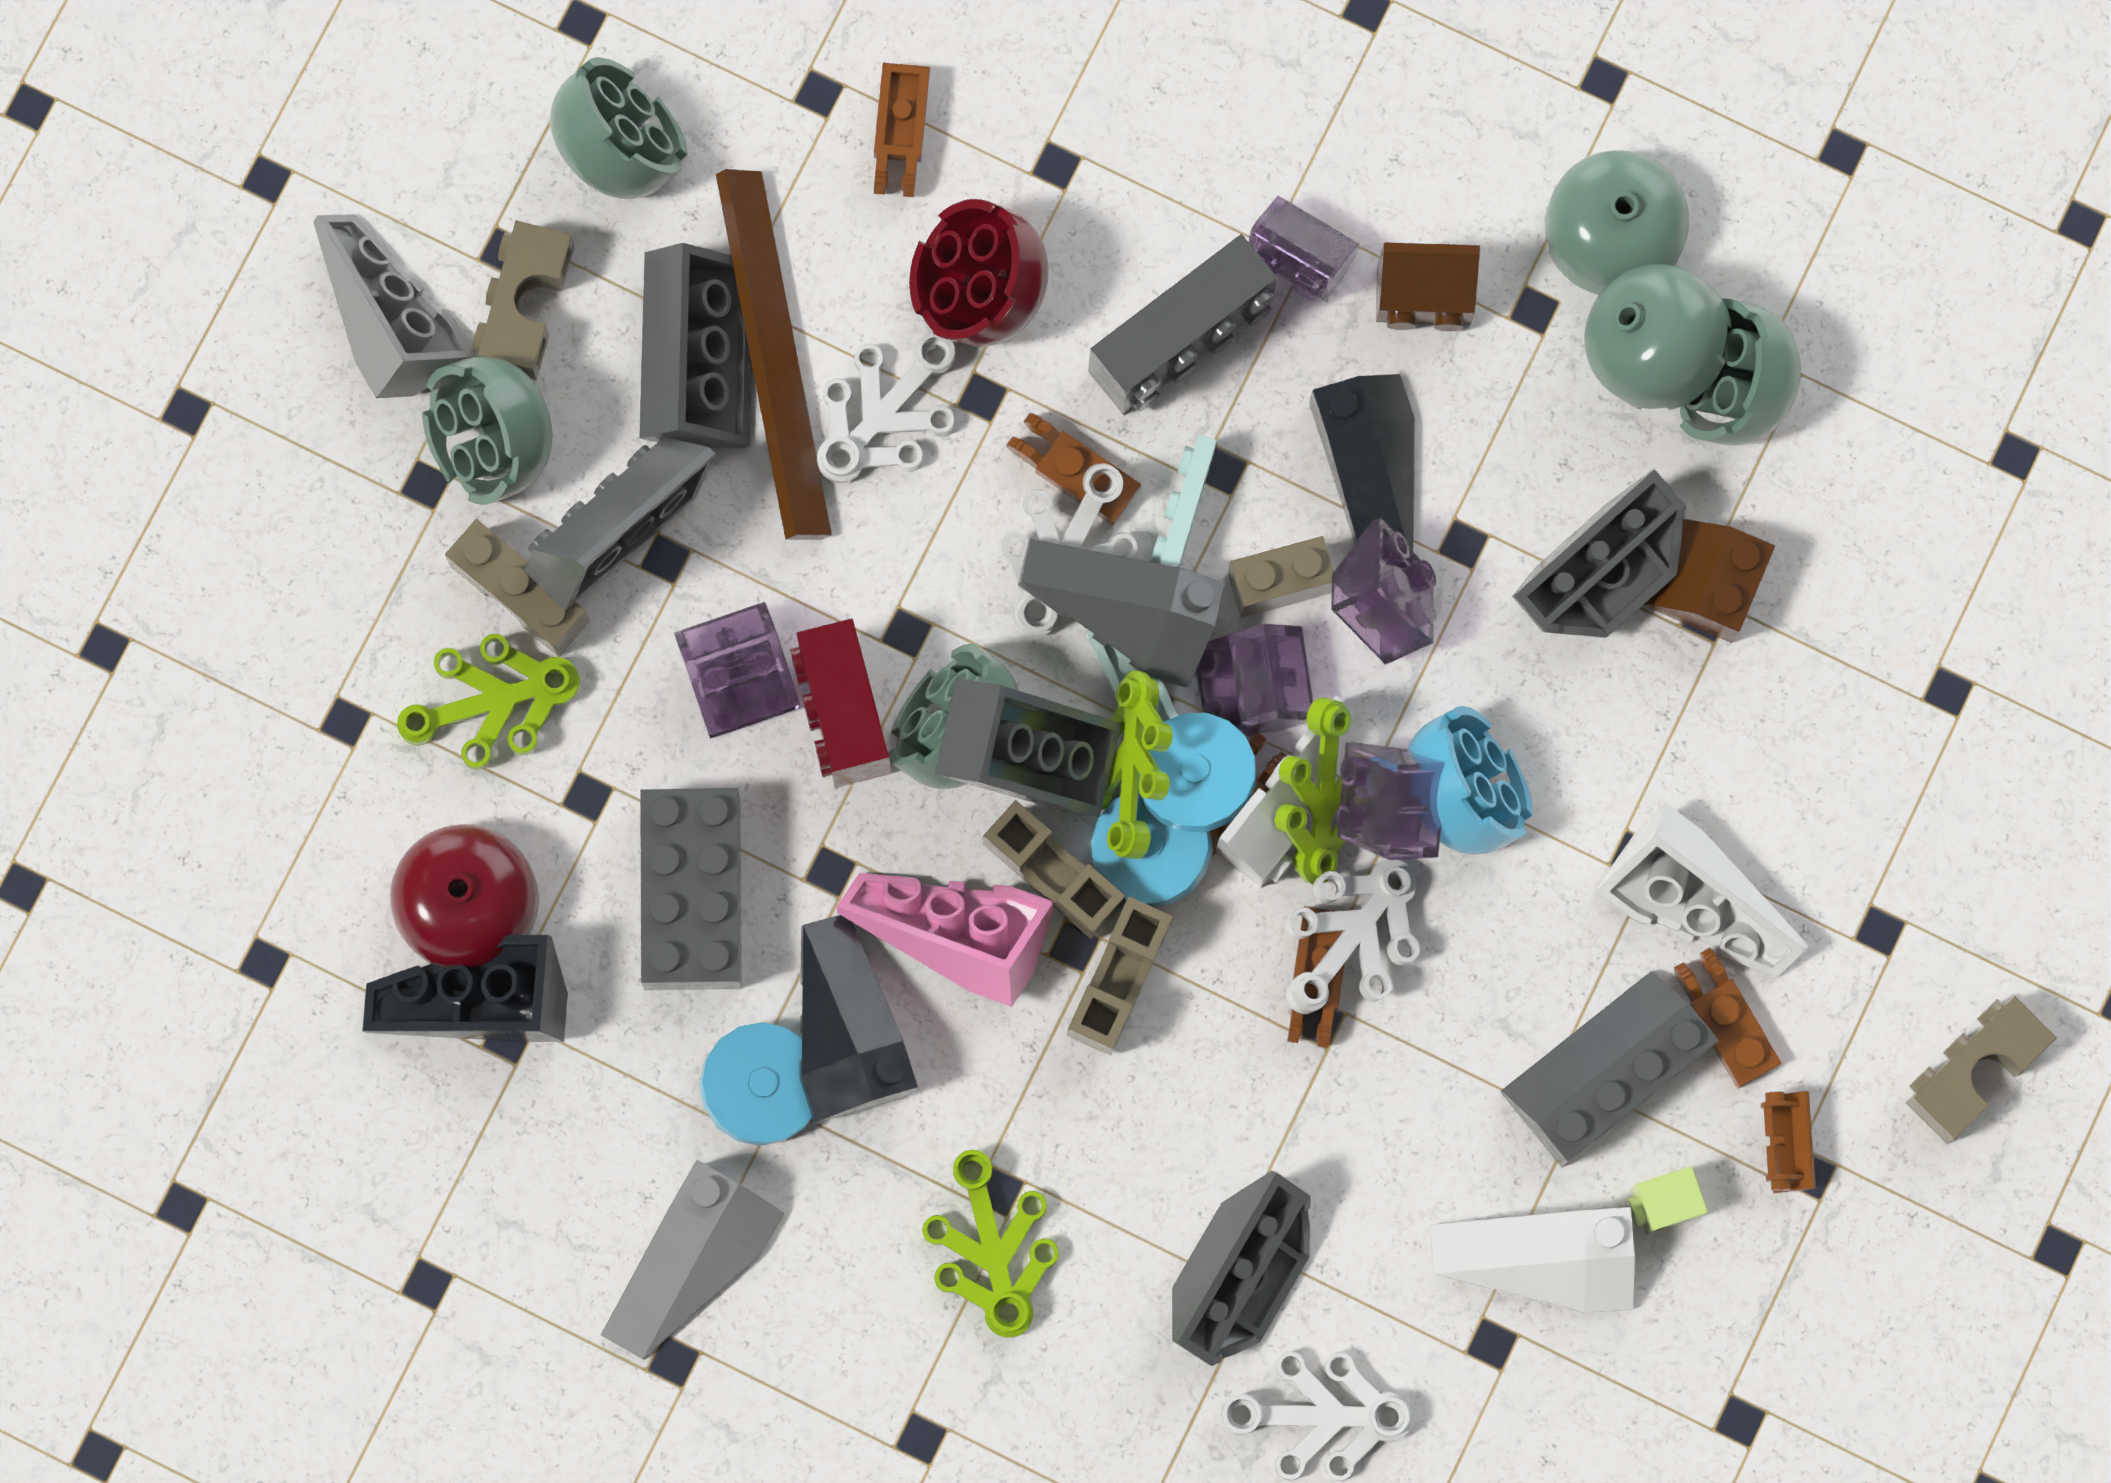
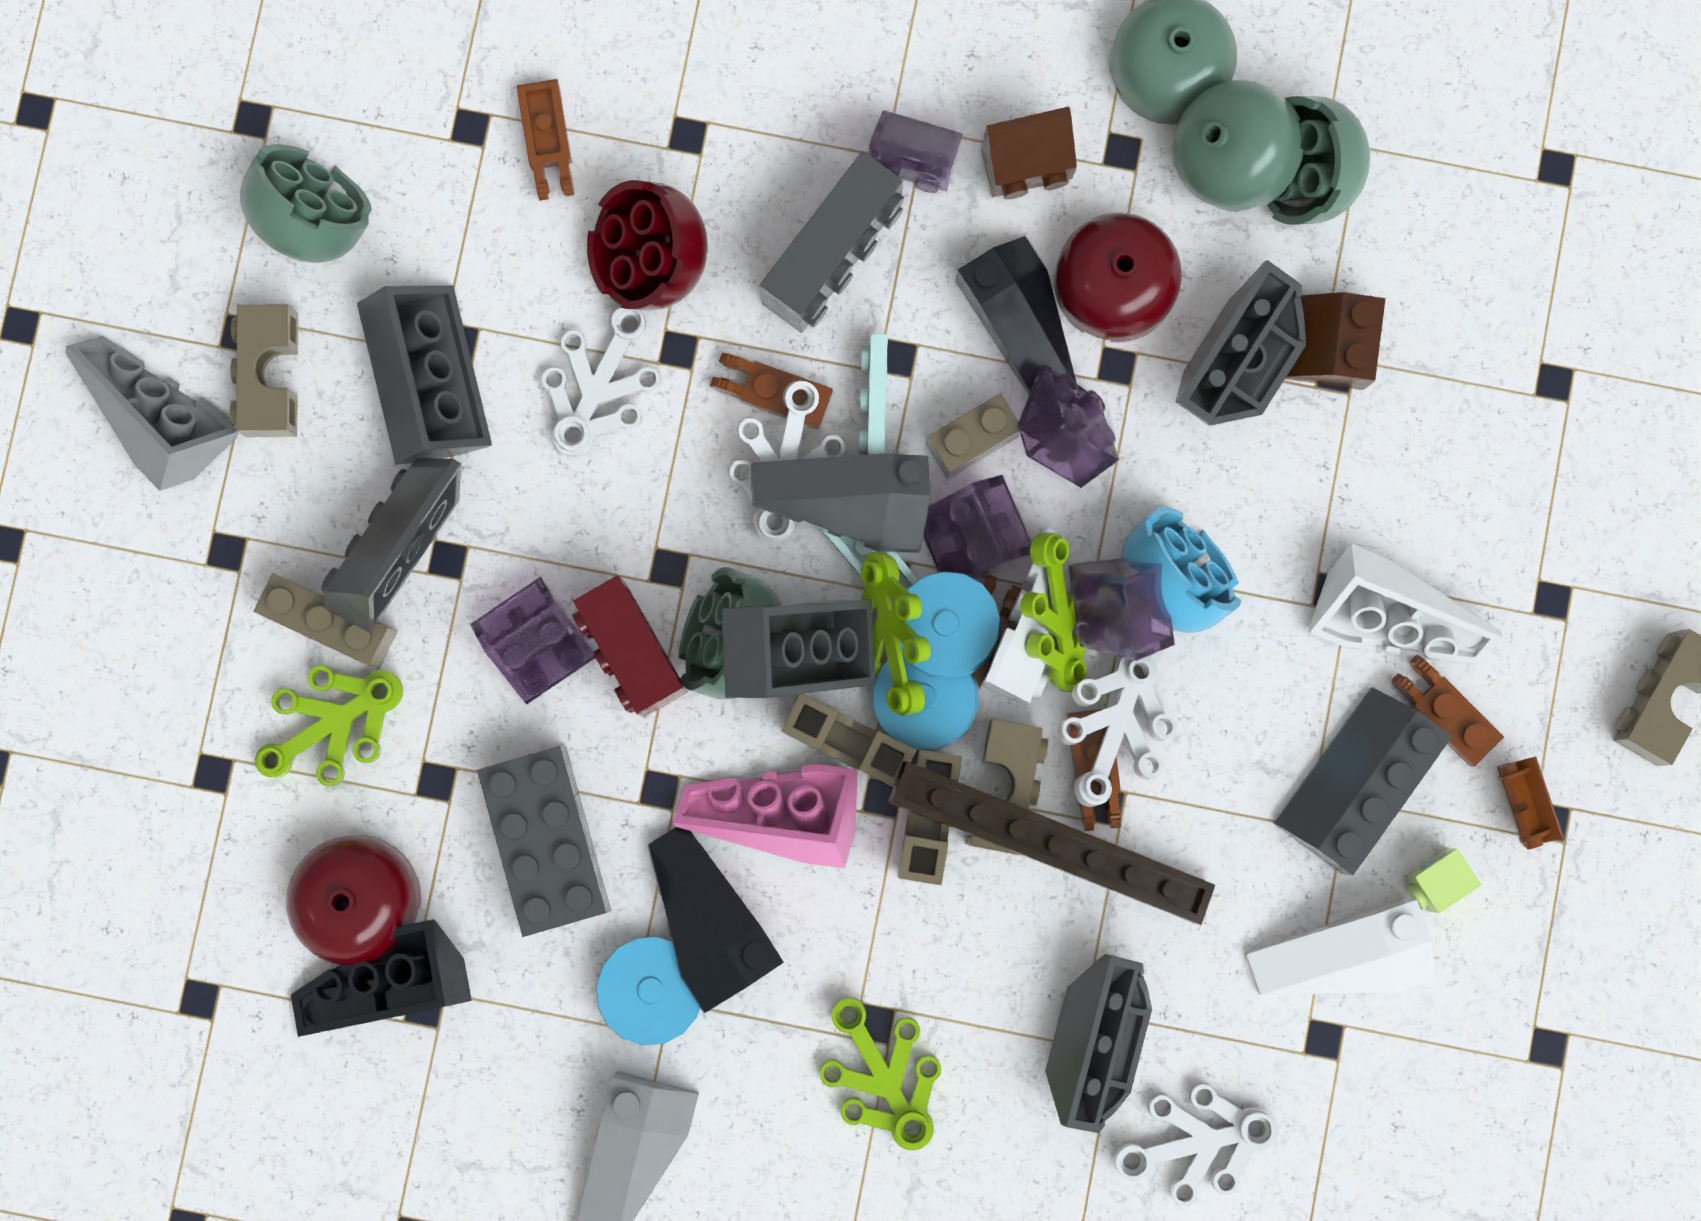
camera: 15 degrees left, 5 degrees up
(510, 422) = (279, 475): sand green cylinder -> none
(773, 355) = (491, 361): reddish brown tile -> none
(1198, 1008) = (1018, 751): none -> dark tan arch
(1246, 1038) = (1051, 842): none -> dark brown plate
(1482, 474) = (1101, 296): none -> dark red cylinder

